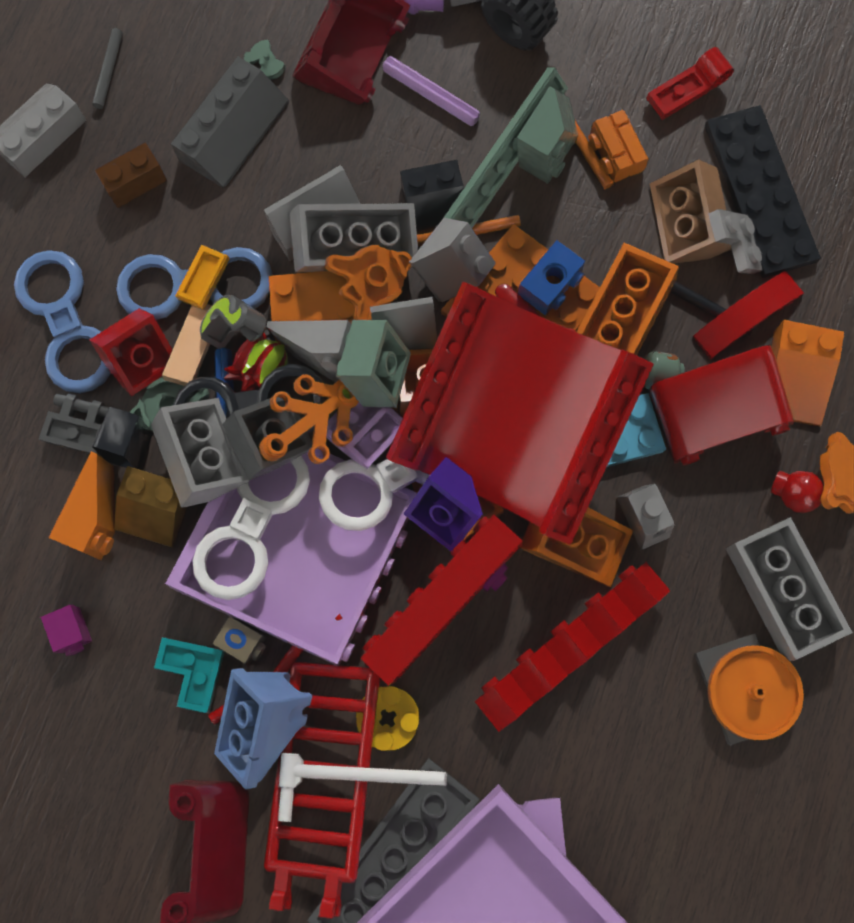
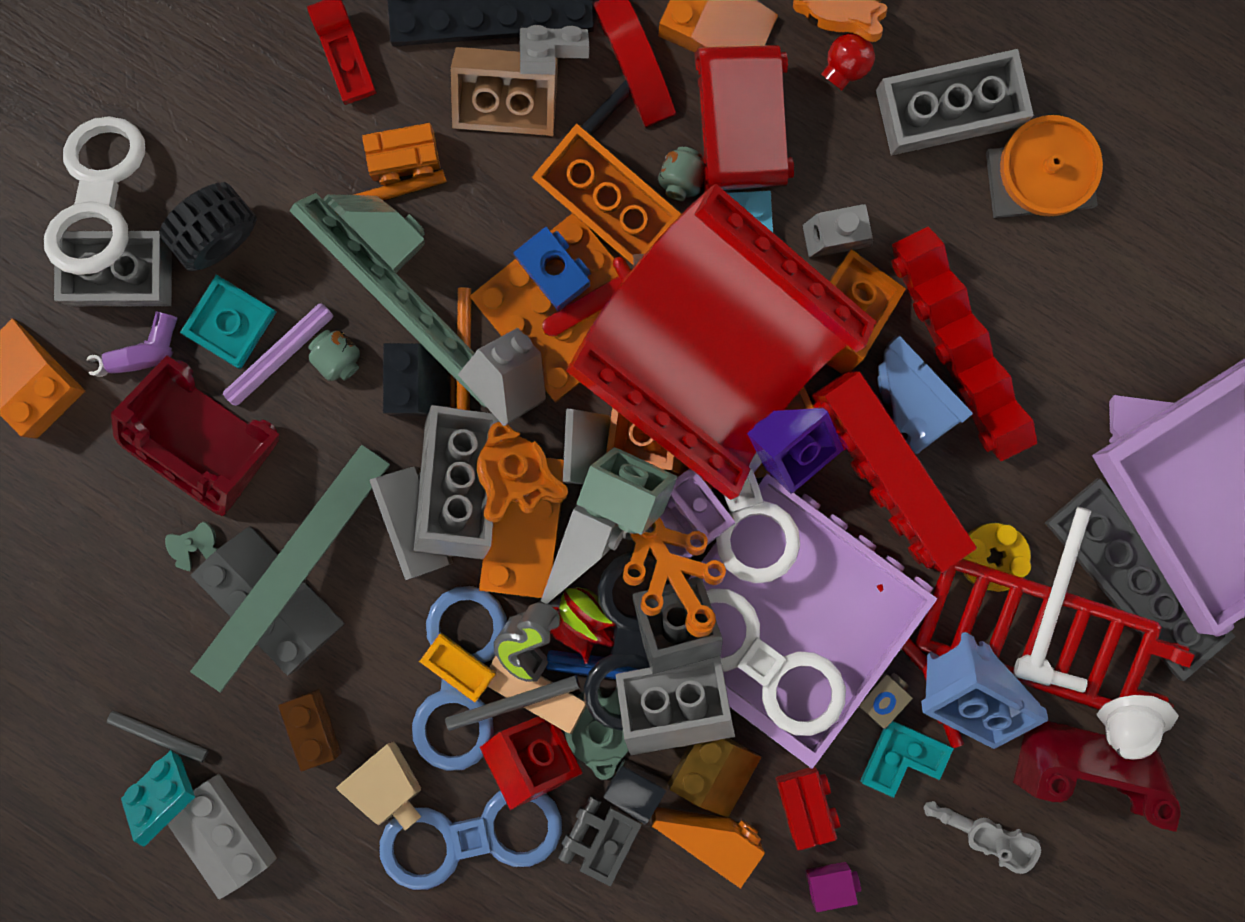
camera: 85 degrees left, 10 degrees up
(56, 71) = (157, 798): none -> teal plate
(93, 241) = (384, 787): none -> tan torso
(126, 789) = (1014, 849): none -> light grey piece
(132, 593) = (807, 808): none -> red brick
(180, 326) = (512, 703): none -> dark grey bar
(253, 124) = (289, 570): none -> sand green tile
(256, 878) = (1136, 724): none -> white piece
(439, 130) = (334, 355): none -> sand green head
(448, 48) = (228, 322): none -> teal plate
(516, 609) = (917, 396): none -> medium blue piece

